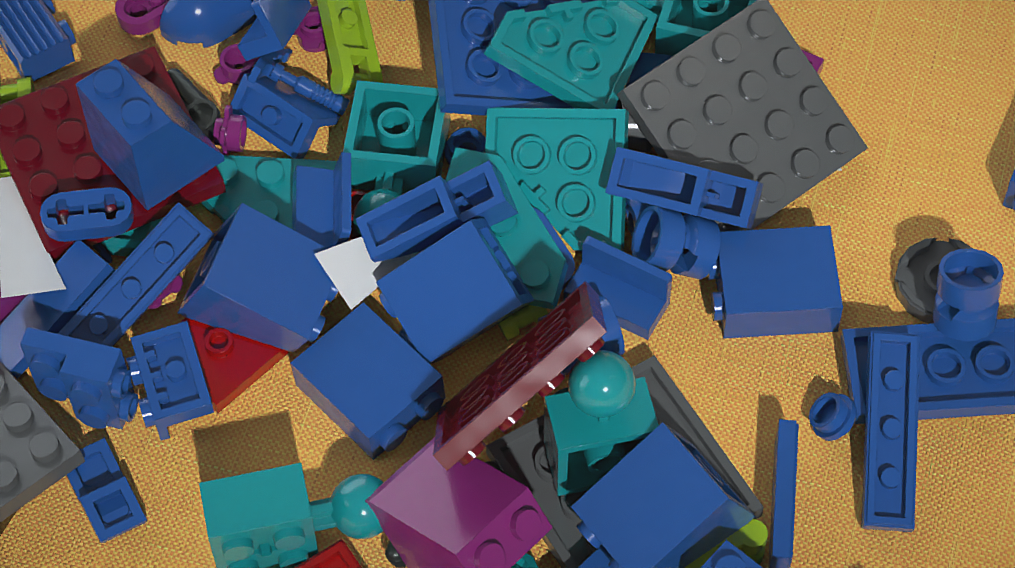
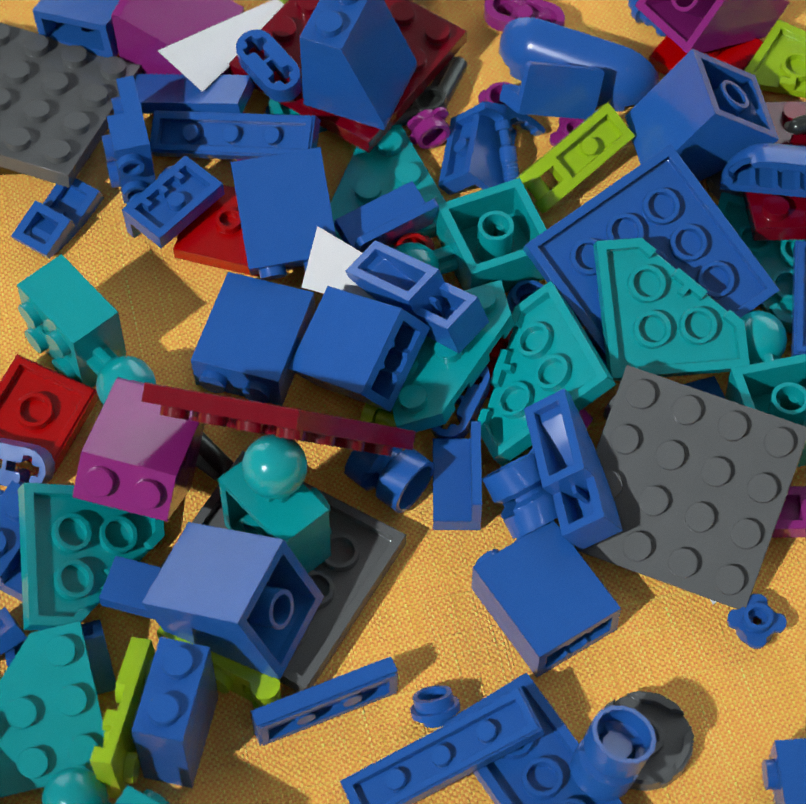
camera: 60 degrees right, 0 degrees up
(878, 155) = (751, 634): none -> blue plate

